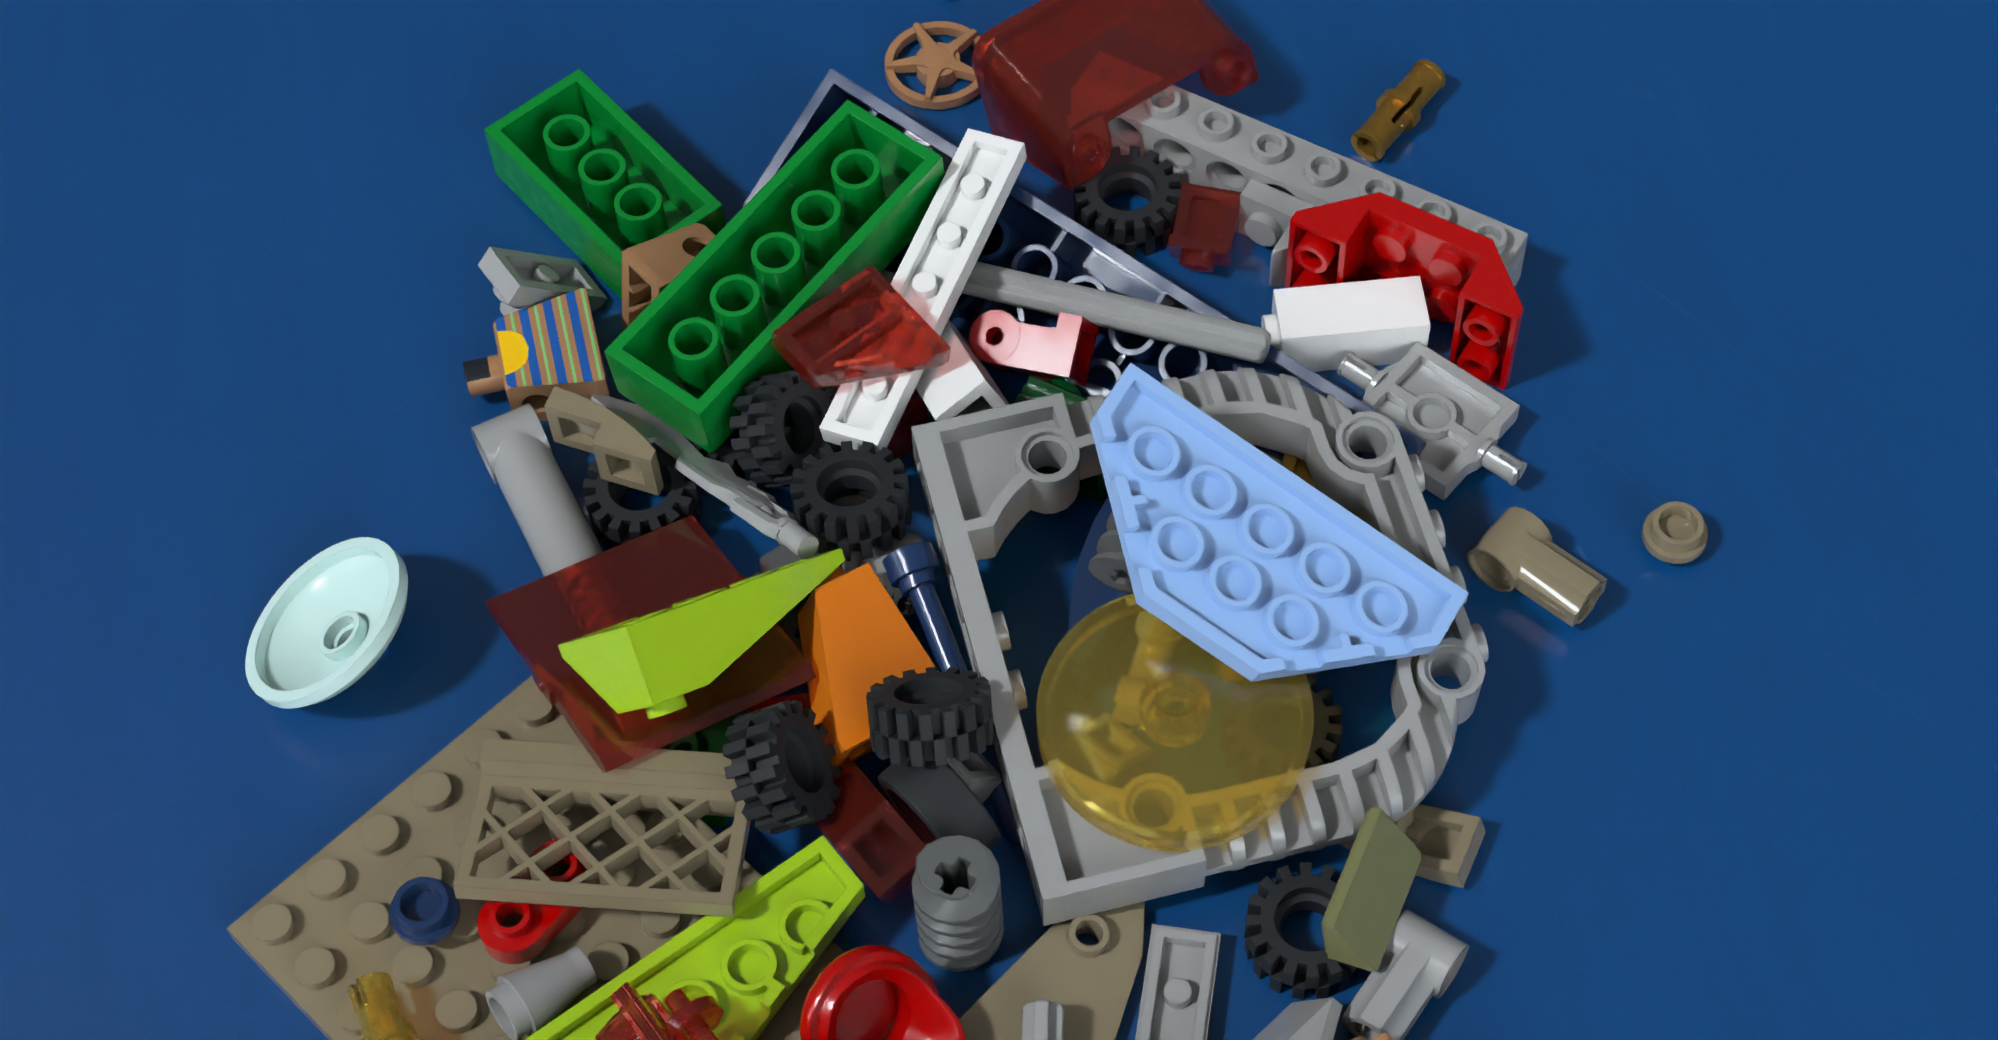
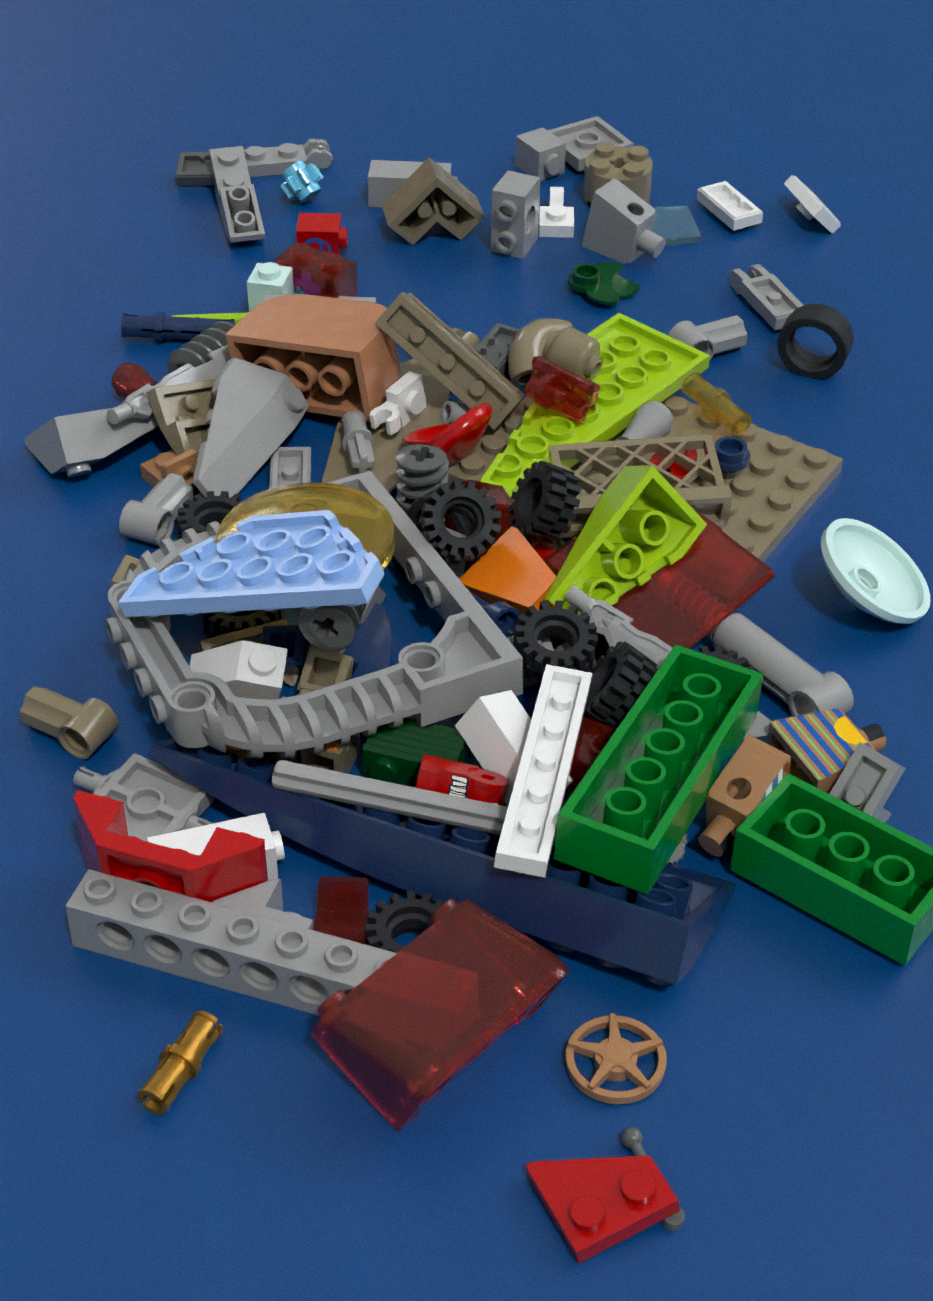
camera: 165 degrees right, 15 degrees down
(619, 448) = (775, 667): dark tan slope -> none
(859, 335) = (580, 700): clear red wing -> none
(1370, 893) = (181, 508): olive slope -> none

